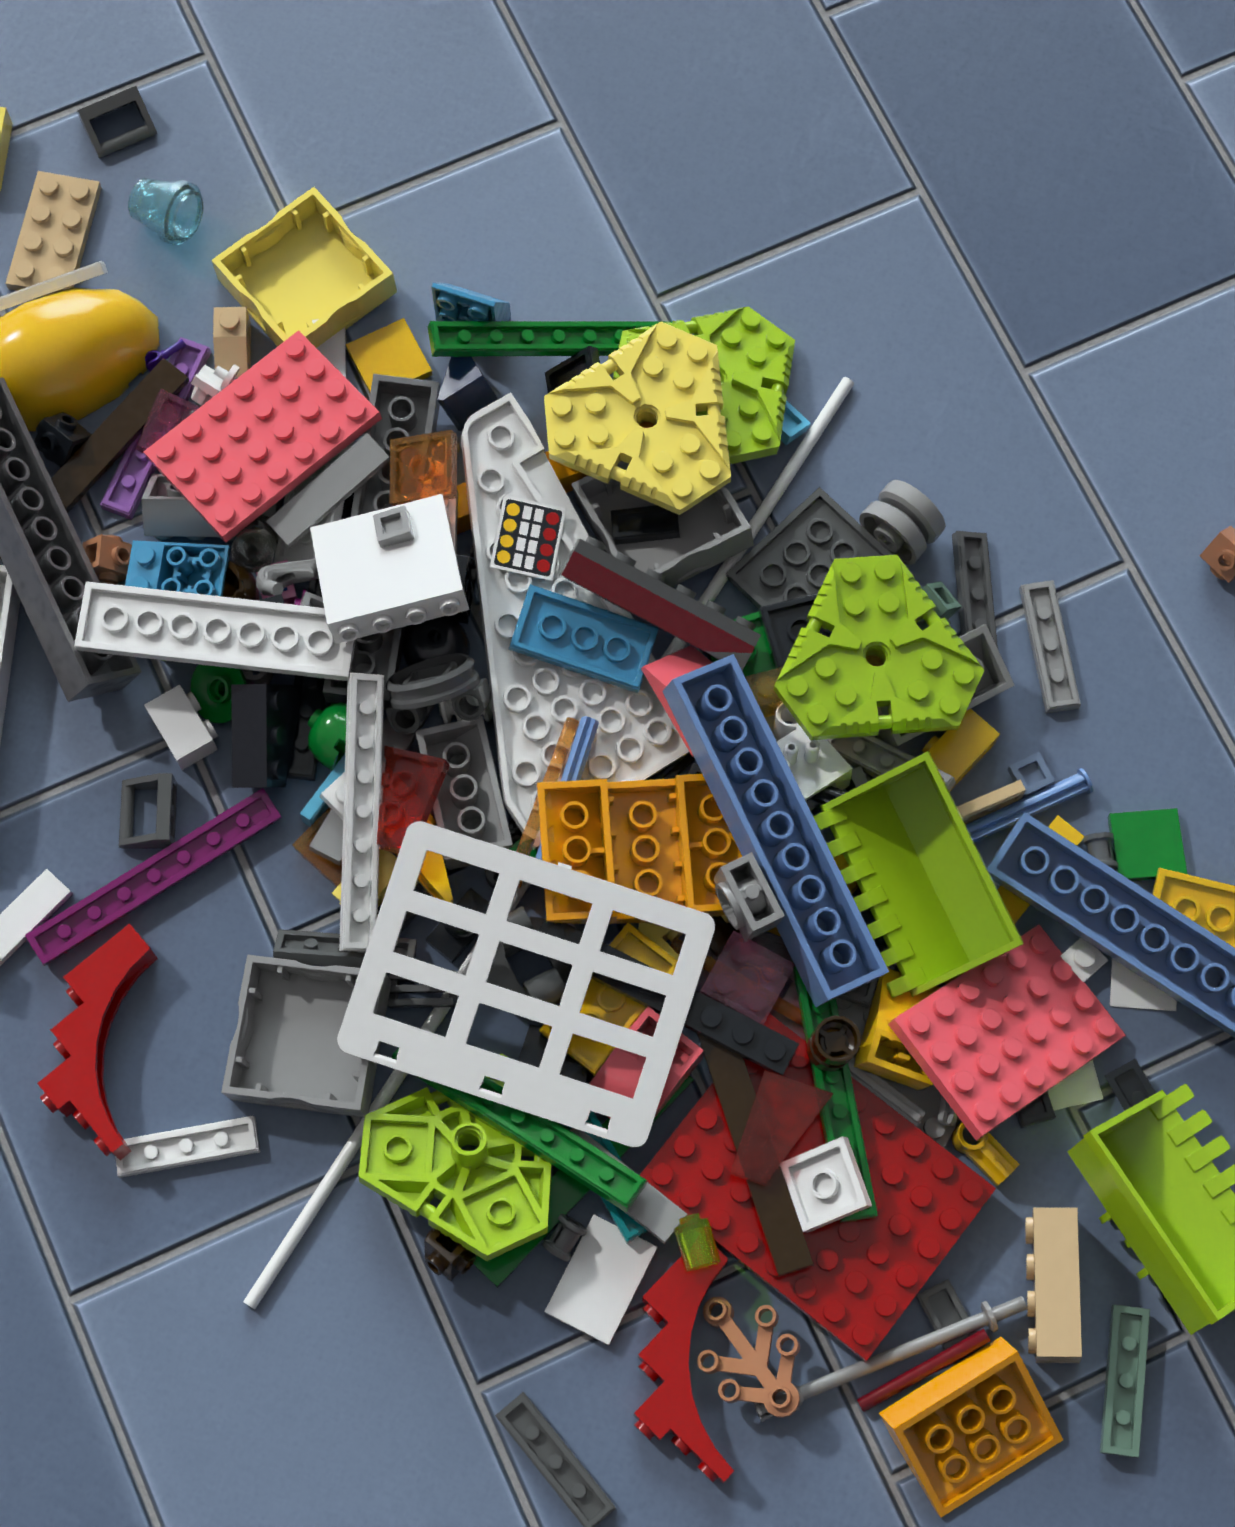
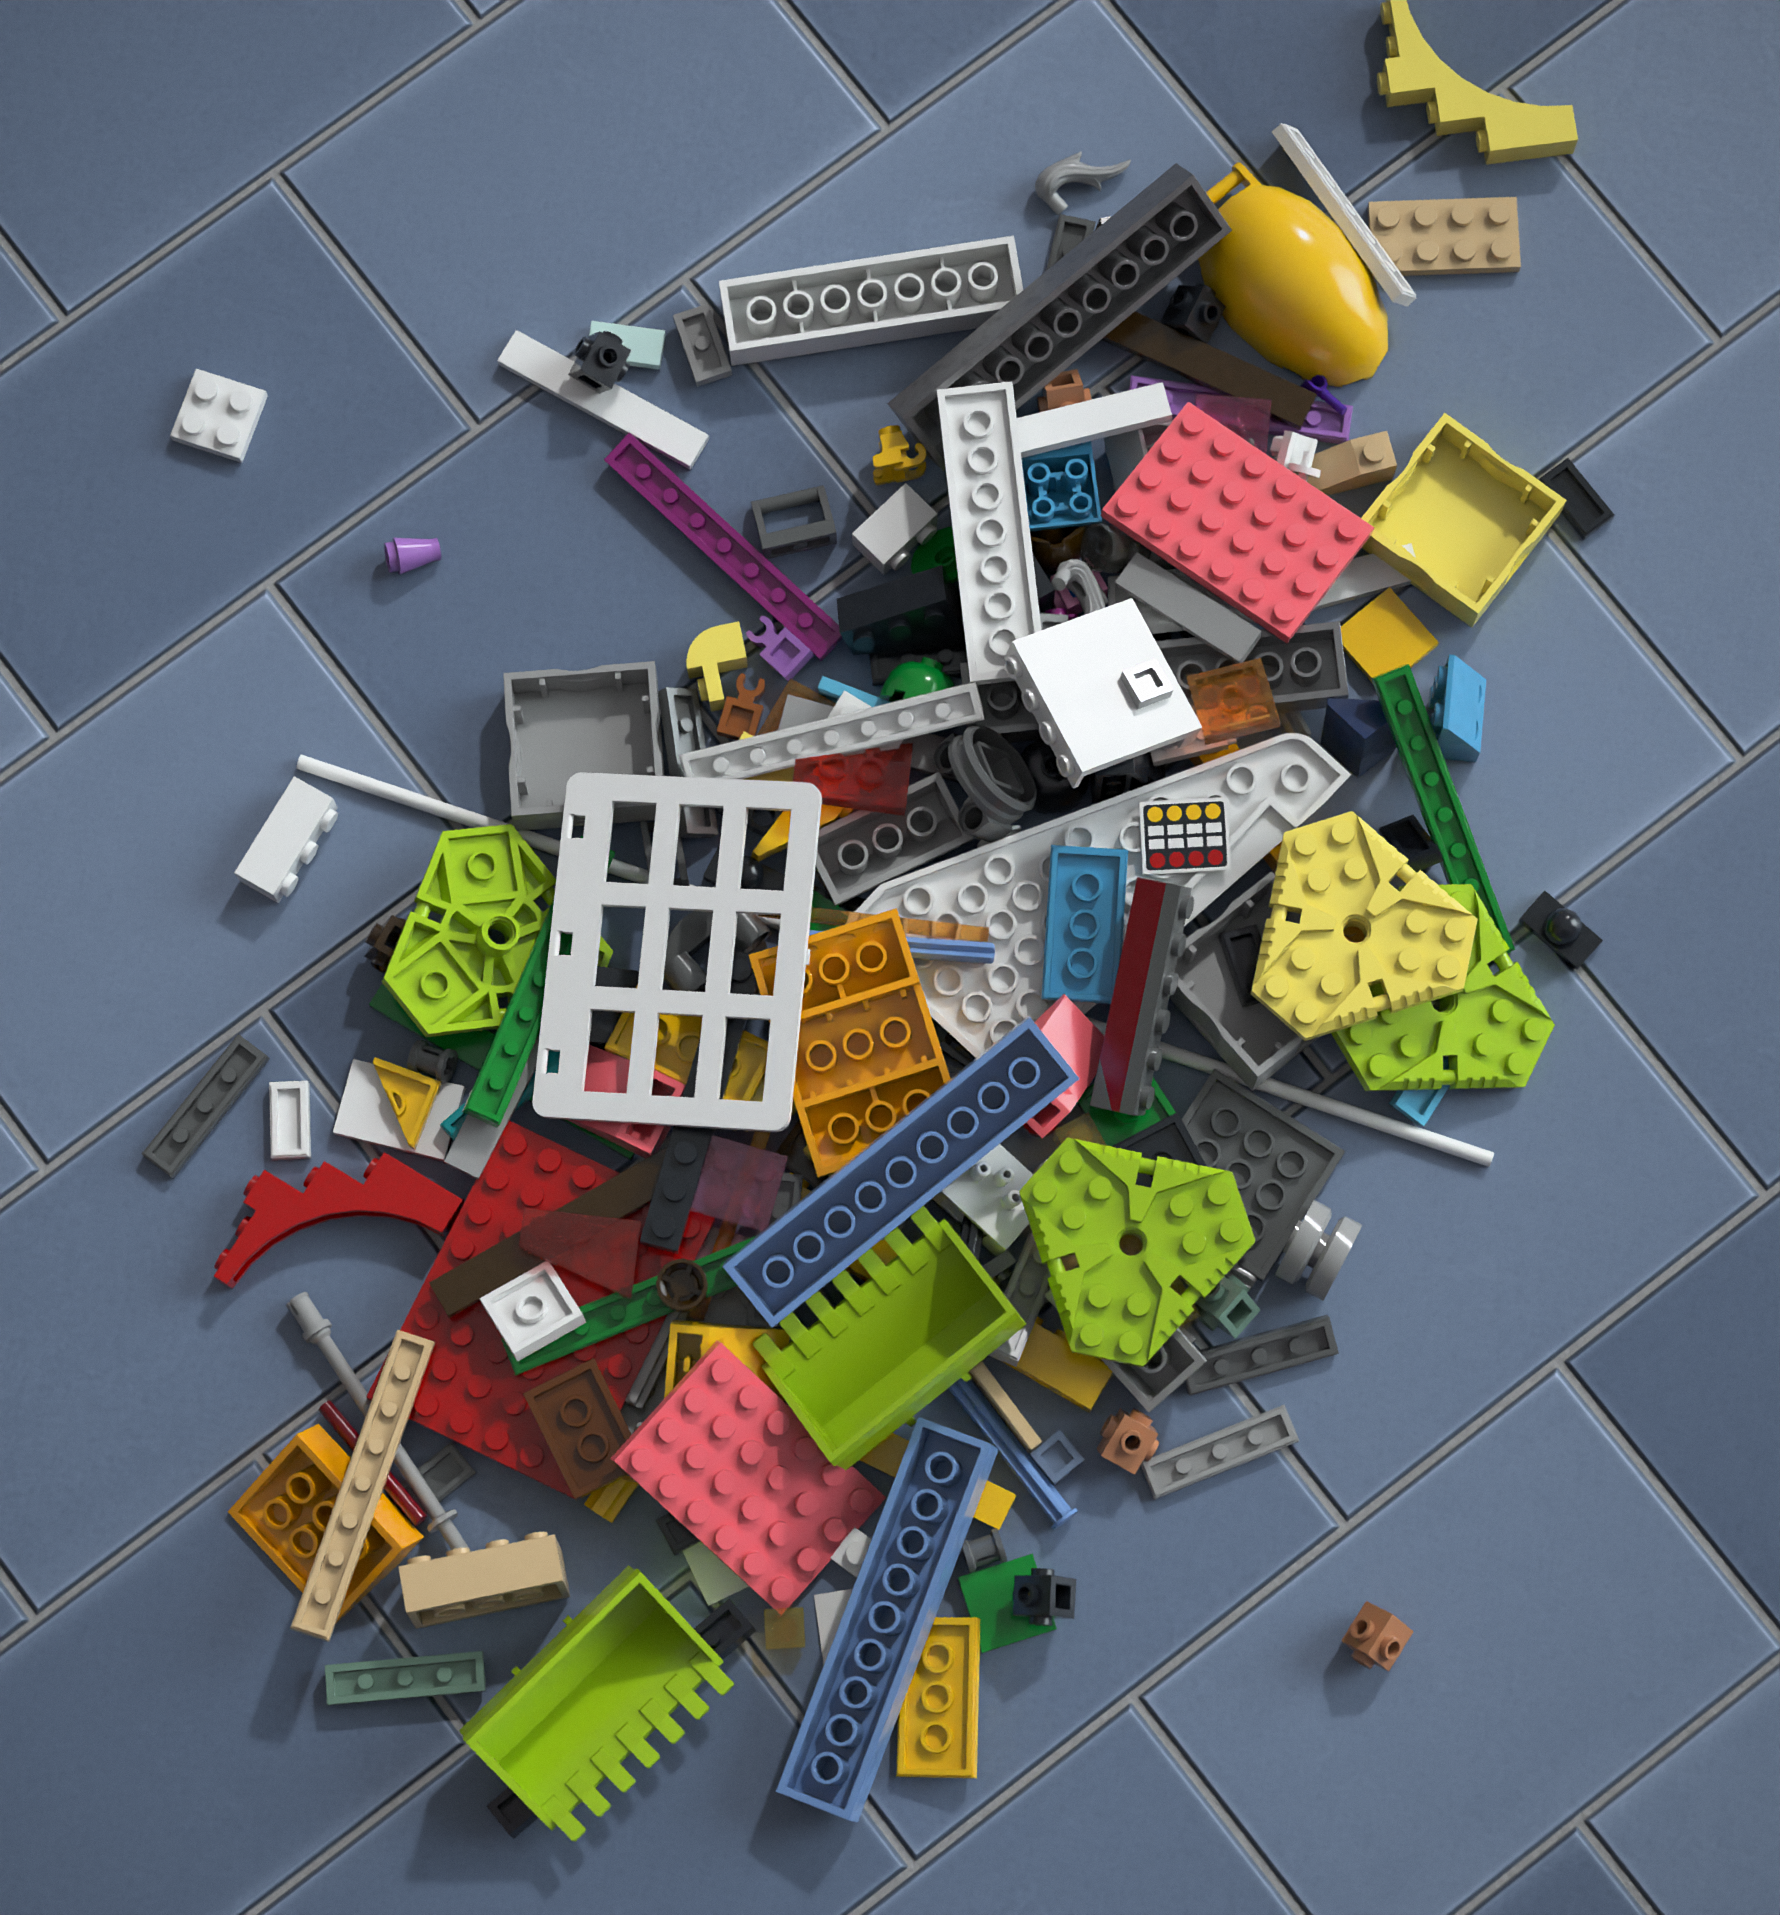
camera: 80 degrees right, 5 degrees up
(79, 1161) = (410, 553): none -> medium lavender cone
(82, 1036) = (535, 521): red arch -> none
(108, 105) = (1620, 253): dark grey tile -> none
(117, 710) = (892, 462): none -> yellow piece
(136, 530) = (1093, 419): none -> white tile
(167, 208) = (1500, 349): clear light blue piece -> none
(189, 1146) = (448, 657): white tile -> none
(251, 907) = (712, 653): none -> light yellow brick
(265, 847) = (782, 651): none -> medium lavender plate
(312, 896) = (742, 713): none -> dark orange plate
(323, 1329) = (287, 840): none -> white brick
(324, 179) = (1583, 506): none -> black tile
(587, 1384) = (290, 1120): none -> white tile
(593, 1265) = (410, 1097): none -> yellow tile
(669, 284) = (1560, 930): none -> black tile
(696, 1242) = (447, 1192): clear neon green brick -> none
(747, 897) = (814, 1155): light grey brick -> none
(754, 1360) = (345, 1282): nougat plant -> none
(938, 1164) = (581, 1427): none -> reddish brown plate
(955, 1376) = (362, 1486): none -> tan tile
(1030, 712) = (1132, 1452): none -> nougat brick
(1138, 1034) = (784, 1628): none -> clear yellow plate
(1155, 806) = (1044, 1597): none -> black brick

